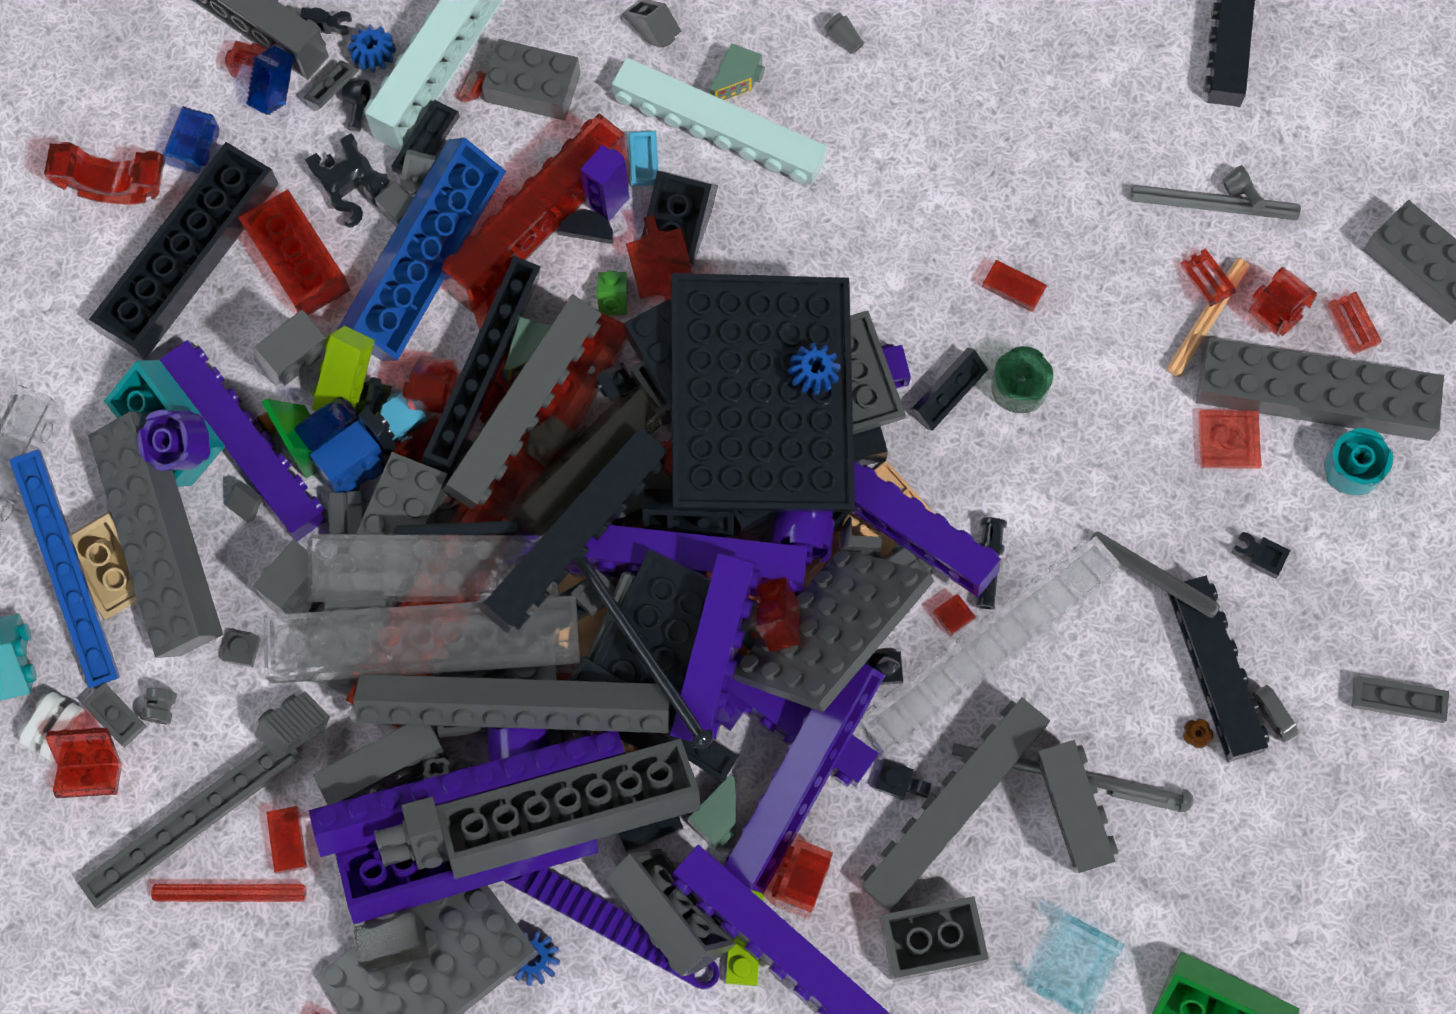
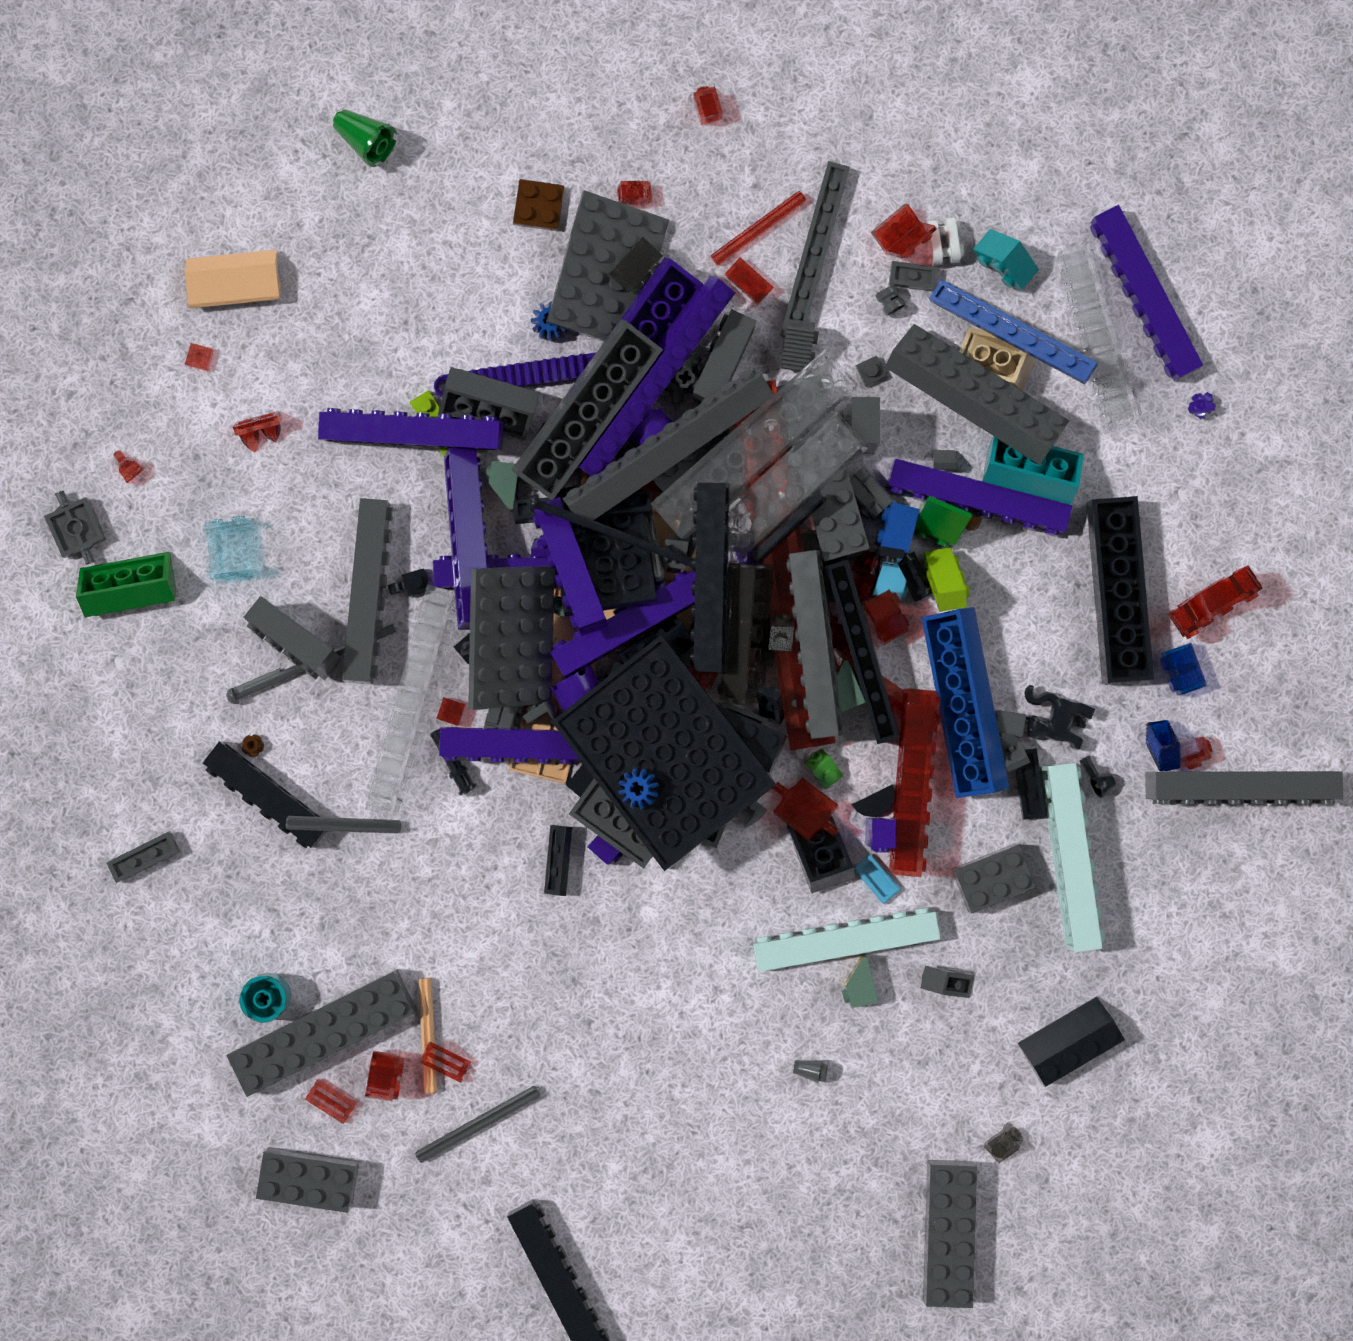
camera: 140 degrees right, 15 degrees up
(174, 440) = (1007, 452): dark purple brick -> none
(289, 348) = (988, 565): dark grey brick -> none
(294, 253) = (1047, 640): clear red brick -> none
(325, 21) = (1170, 817): black plate -> none
(326, 423) = (926, 537): clear blue brick -> none
(329, 85) = (1123, 774): dark grey slope -> none
(378, 40) = (1119, 813): blue gear -> none
(415, 839) = (659, 325): dark grey brick -> none
(471, 87) = (1029, 844): clear red tile -> none
(777, 614) = (549, 619): clear red brick -> none
(803, 879) = (423, 478): clear red brick -> none
(933, 939) = (323, 501): dark grey brick -> none
(1014, 285) = (567, 964): clear red plate -> none
(1017, 395) = (510, 910): clear green brick -> none
(1229, 439) = (358, 958): clear red tile -> none
(1239, 183) = (470, 1148): dark grey bar -> none
(1265, 556) = (284, 892): black plate -> none
(1275, 713) = (213, 791): dark grey beam -> none

